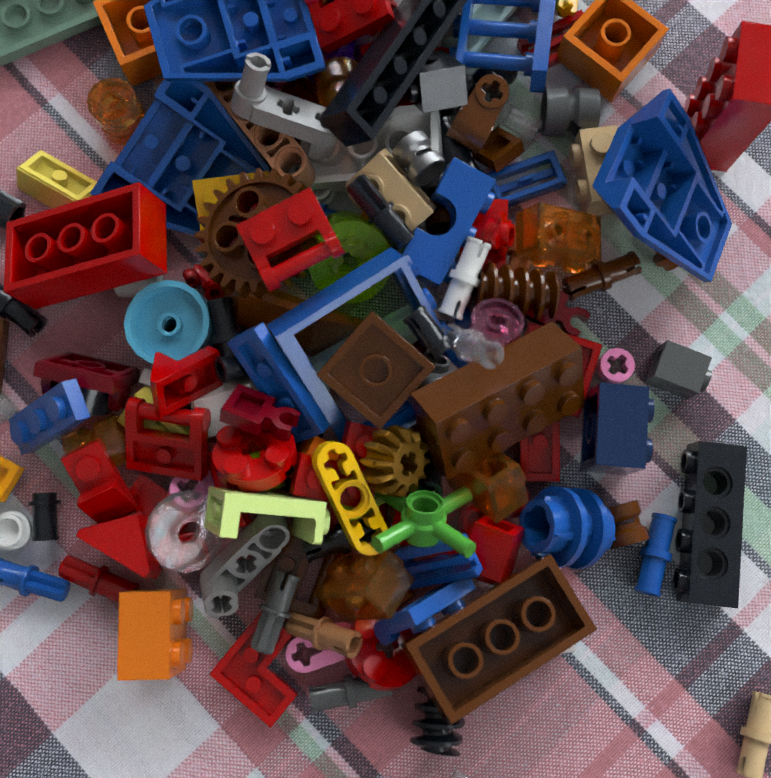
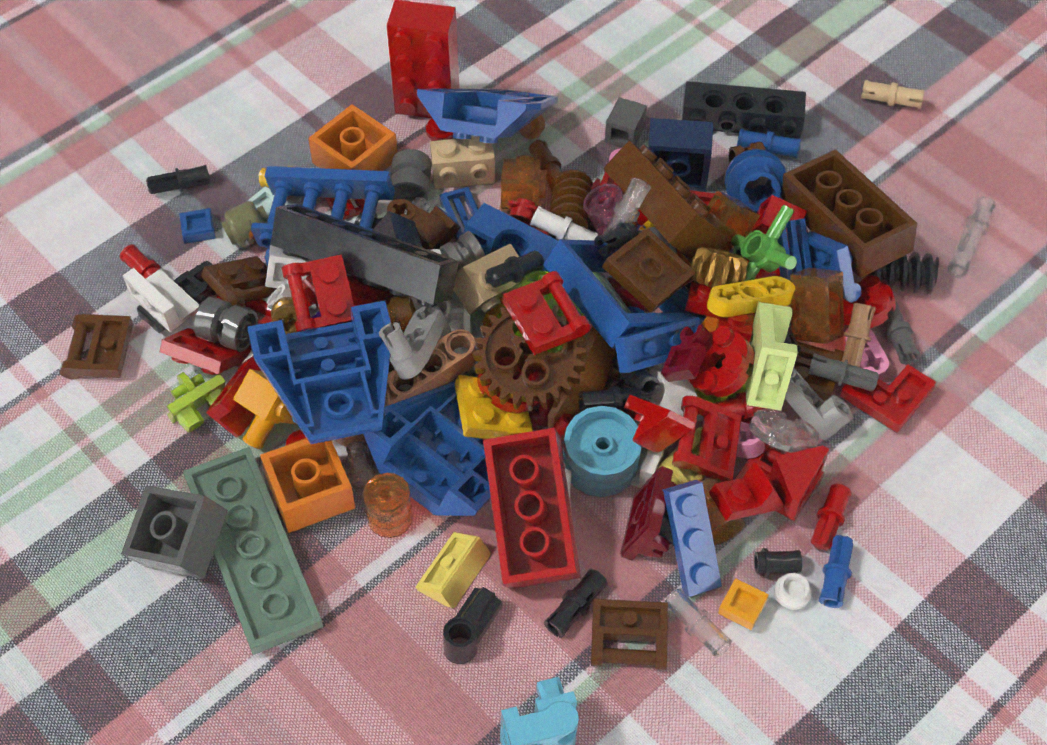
camera: 90 degrees left, 25 degrees down
(153, 634) = (873, 454): orange brick -> none

